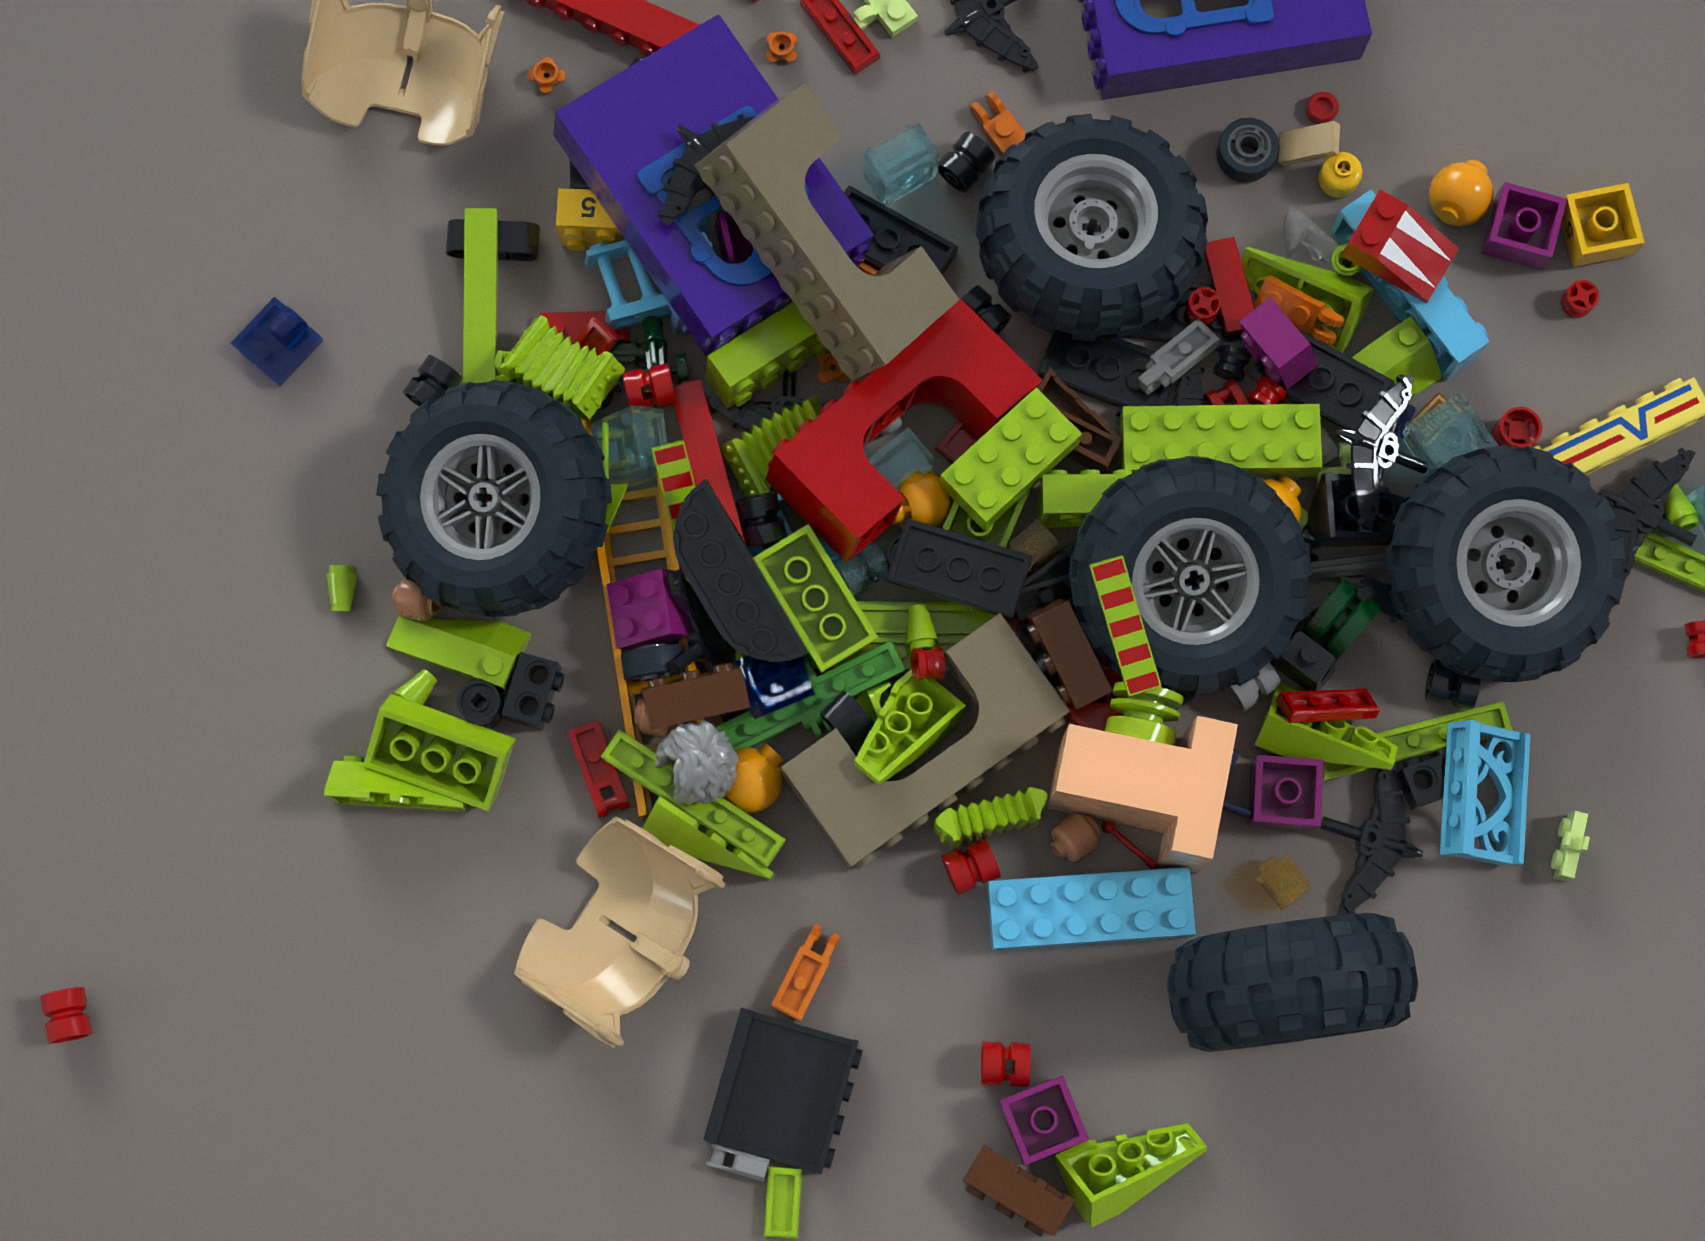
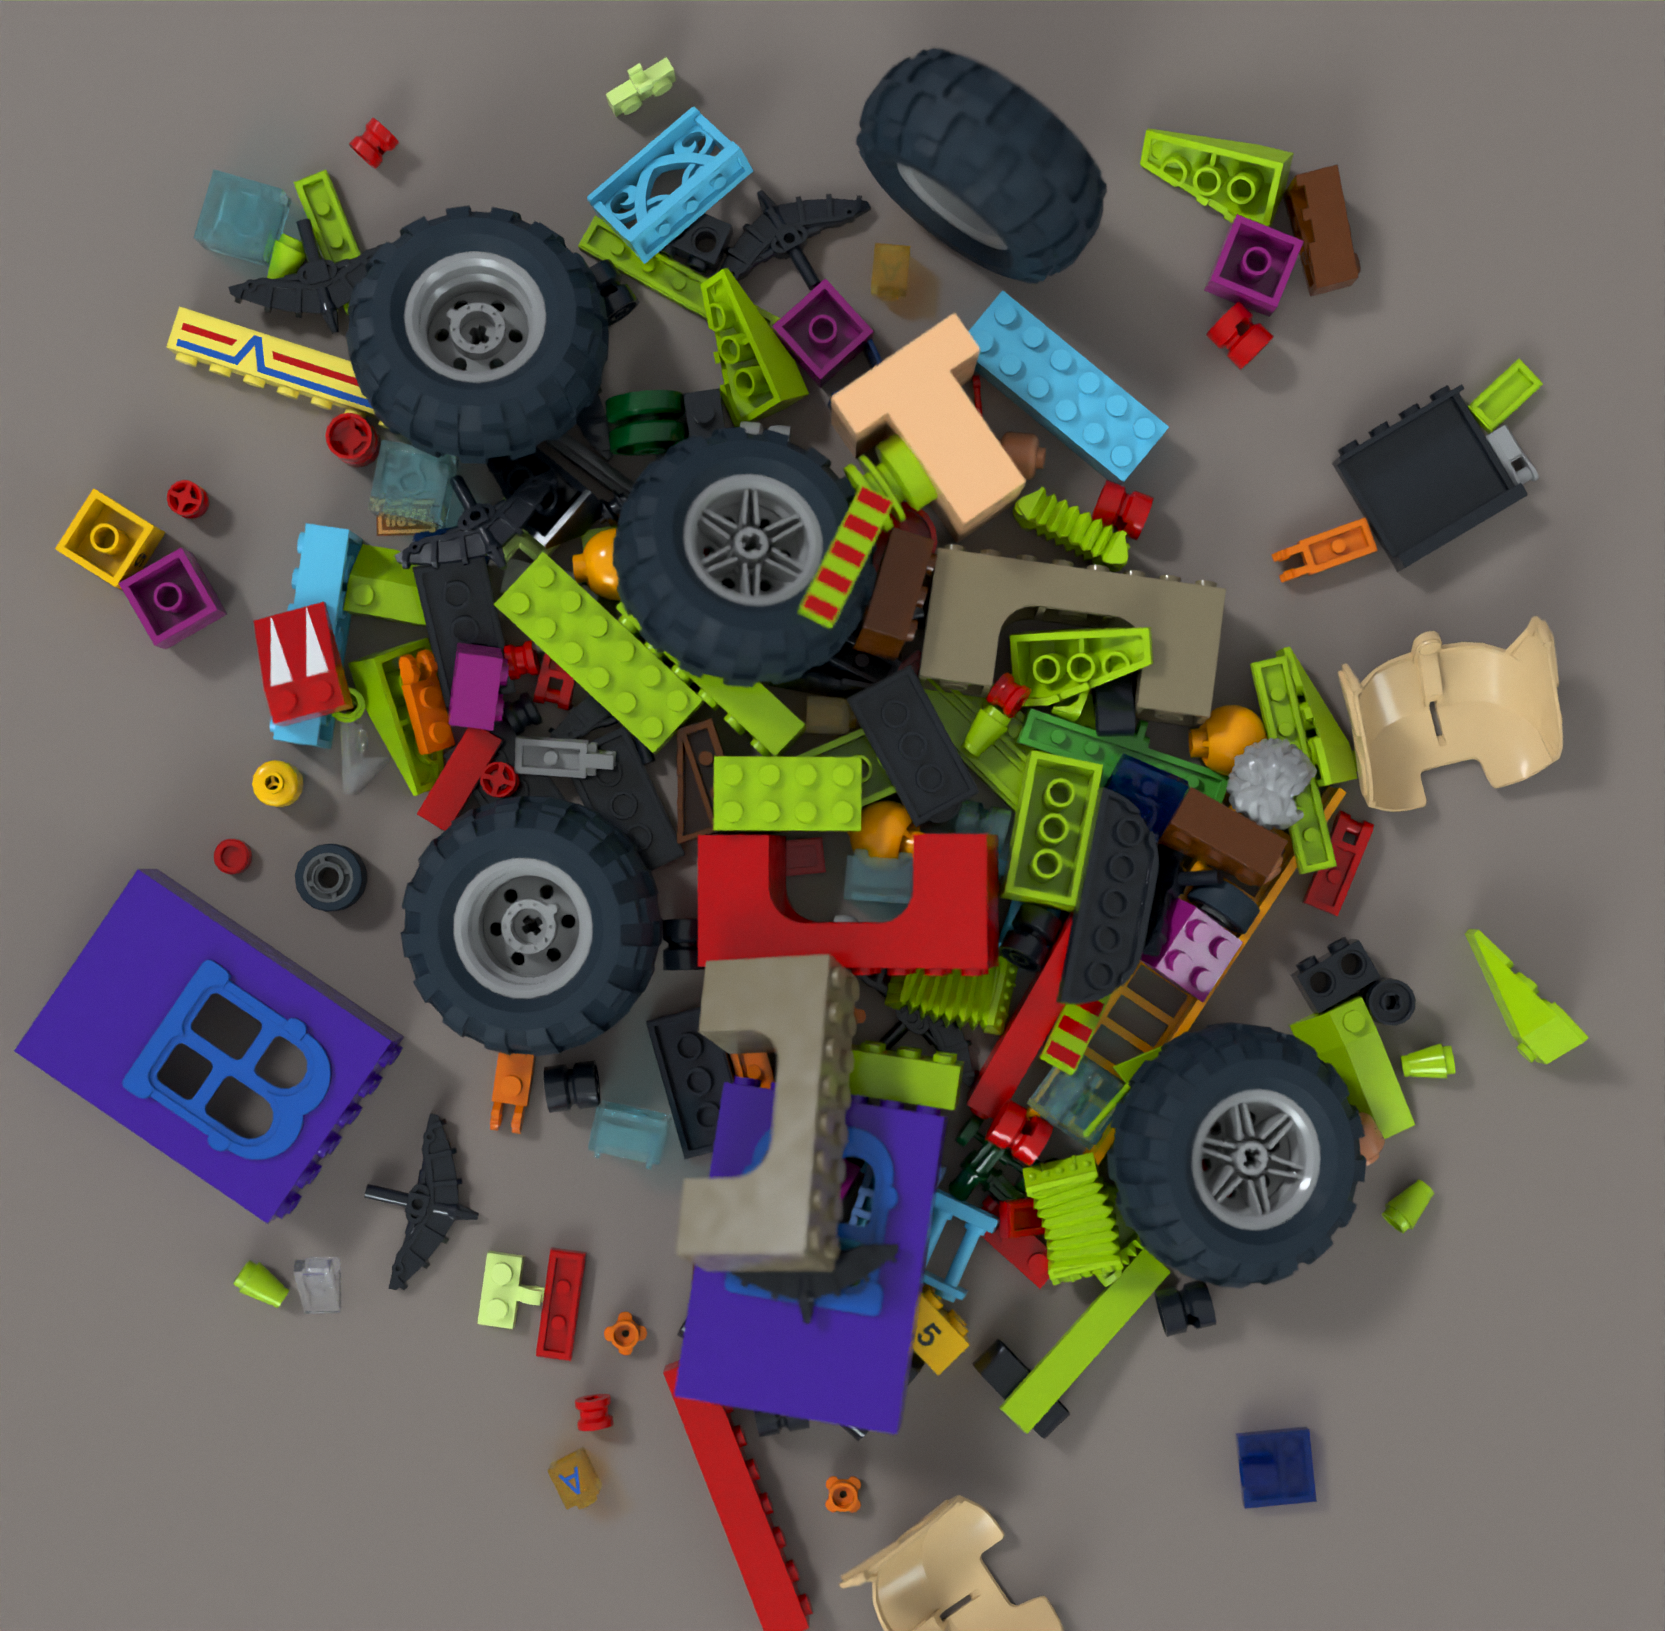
camera: 135 degrees left, 10 degrees up
(439, 752) = (1459, 991): lime brick -> none
(1309, 143) = (276, 833): tan tile -> none
(1327, 705) = (723, 368): red tile -> none
(1461, 193) = (194, 674): light orange brick -> none

